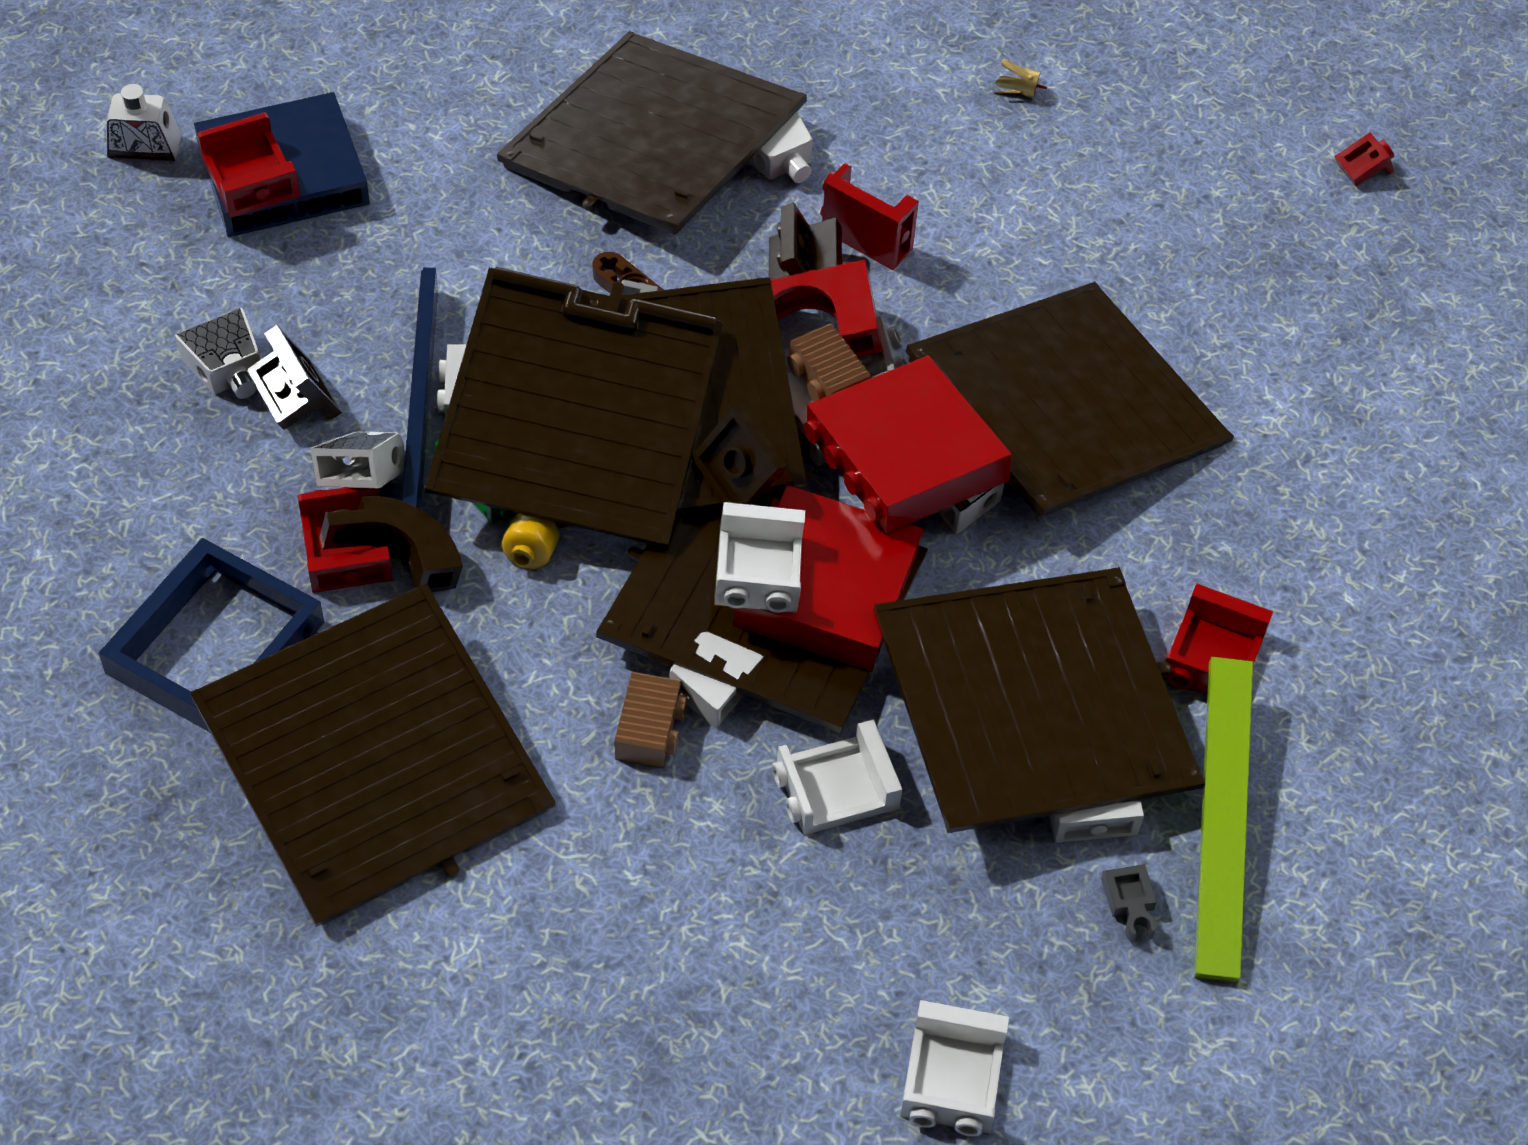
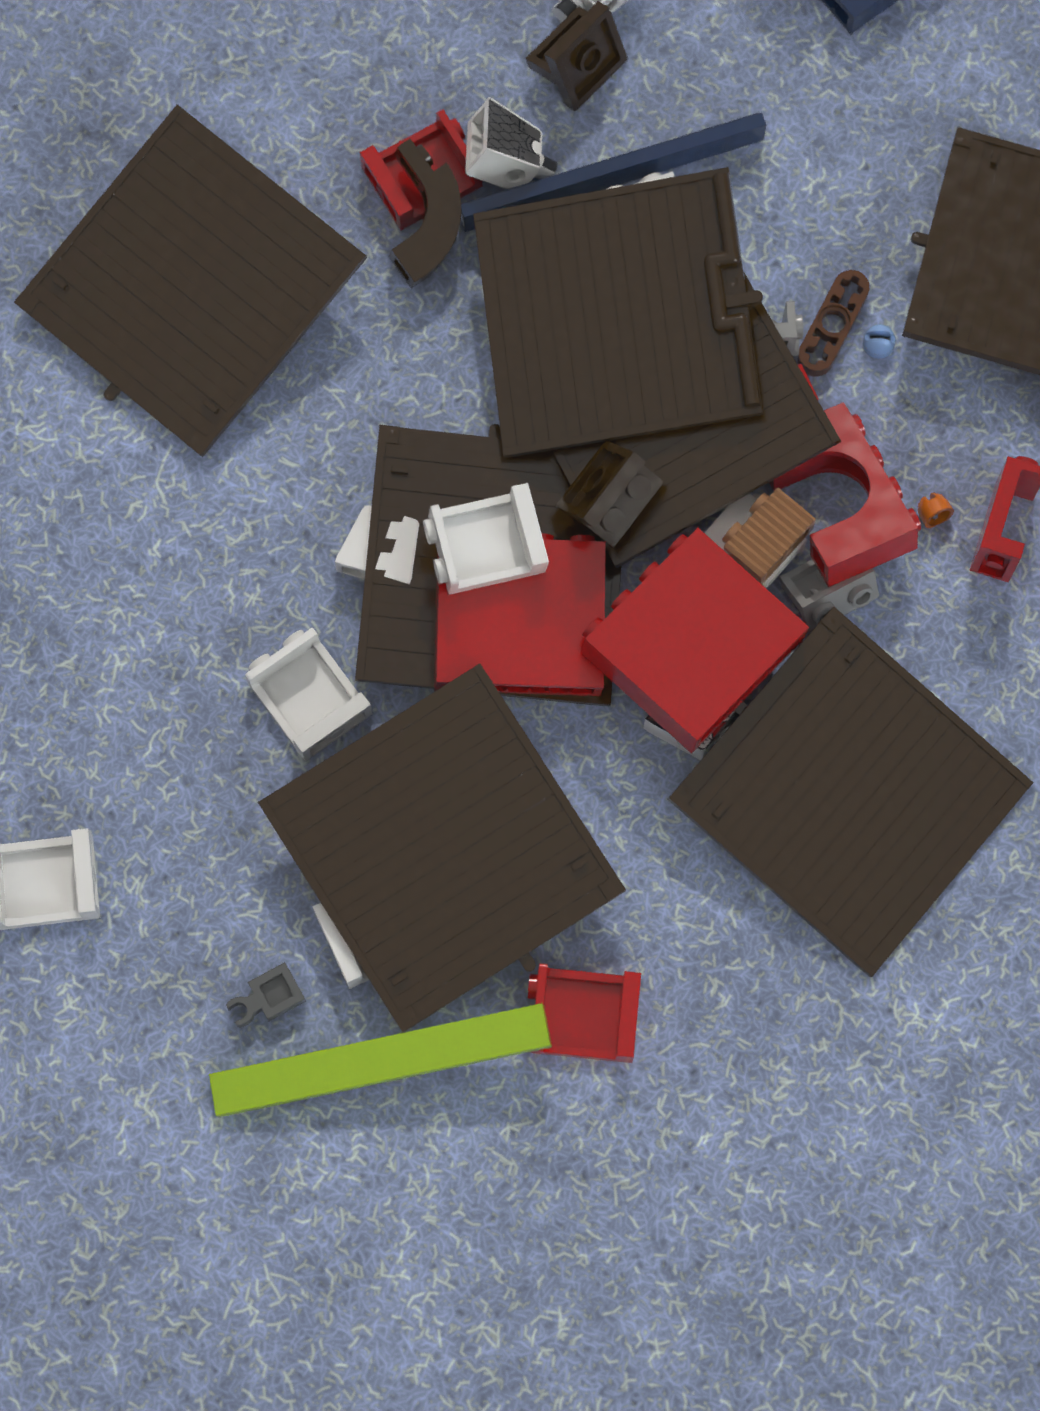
camera: 75 degrees right, 20 degrees up
(169, 598) = (295, 49): dark blue window -> none
(530, 539) = (470, 333): yellow head -> none
(648, 720) = (314, 506): medium nougat brick -> none
(669, 269) = (879, 346): none -> light blue hinge
(803, 246) = (936, 470): dark brown bracket -> none

